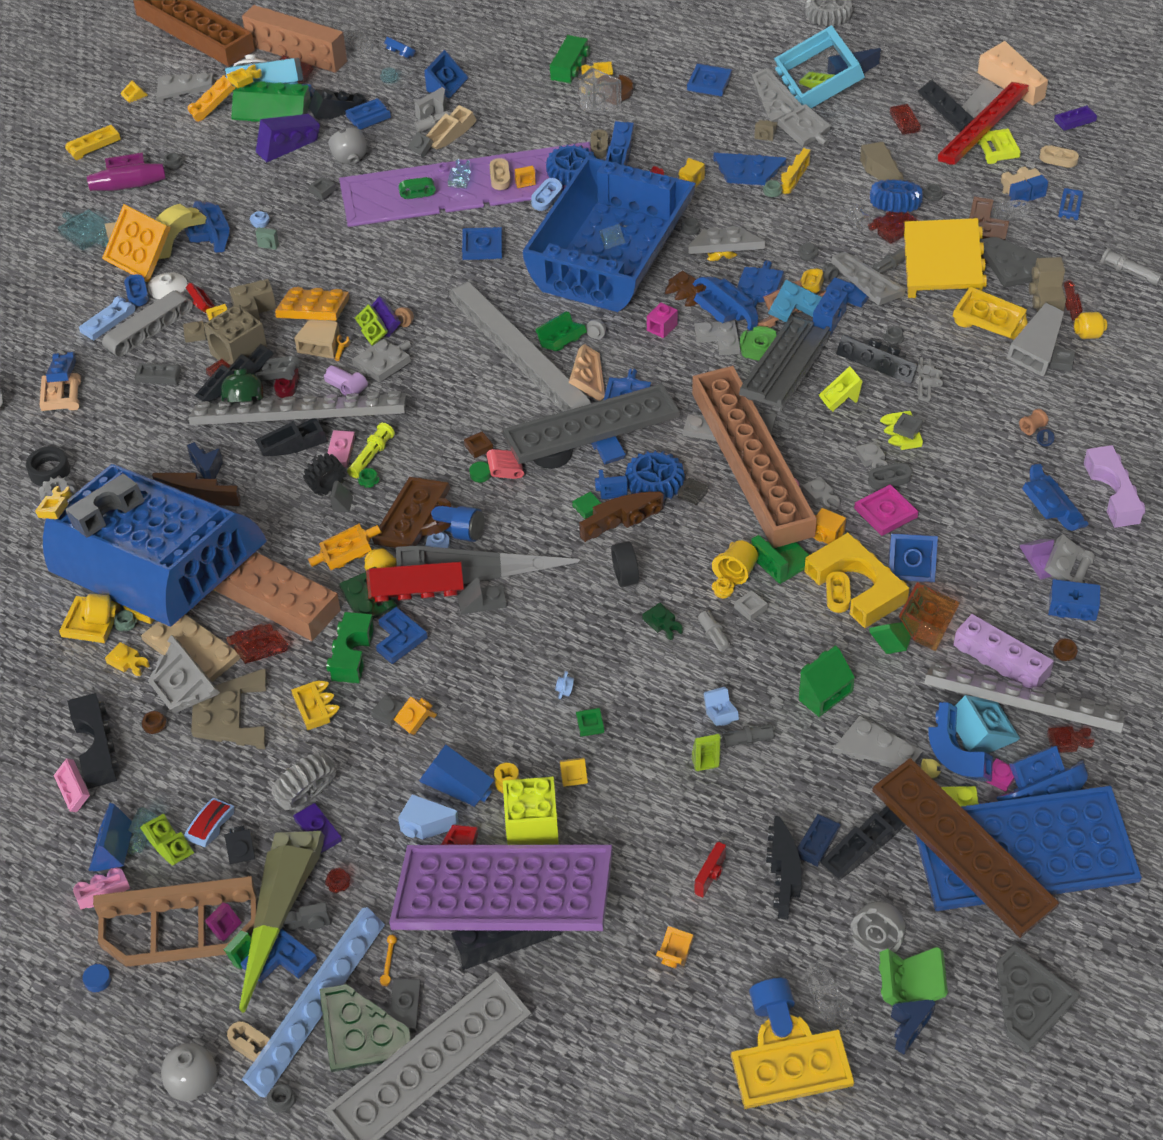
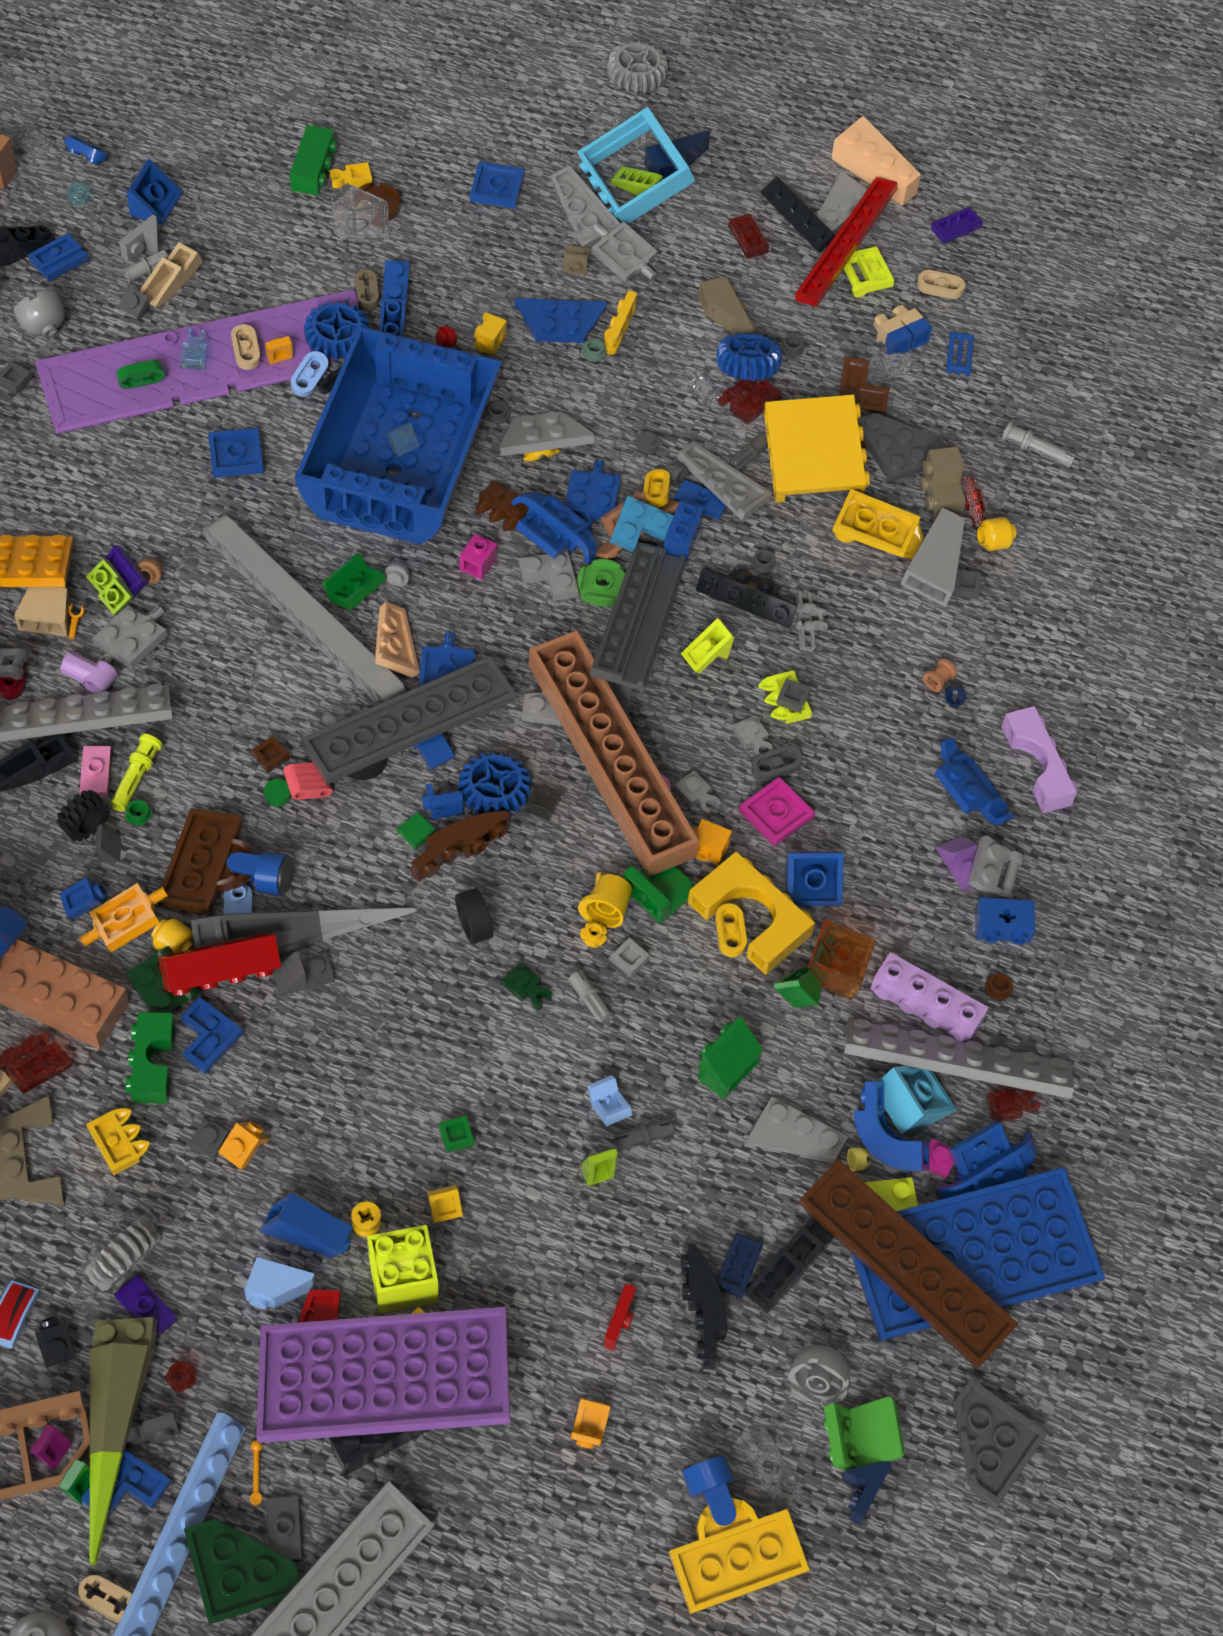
camera: 15 degrees left, 10 degrees up
(315, 531) = (83, 897): none -> blue bracket
(564, 685) = (419, 1087): light blue plate -> none

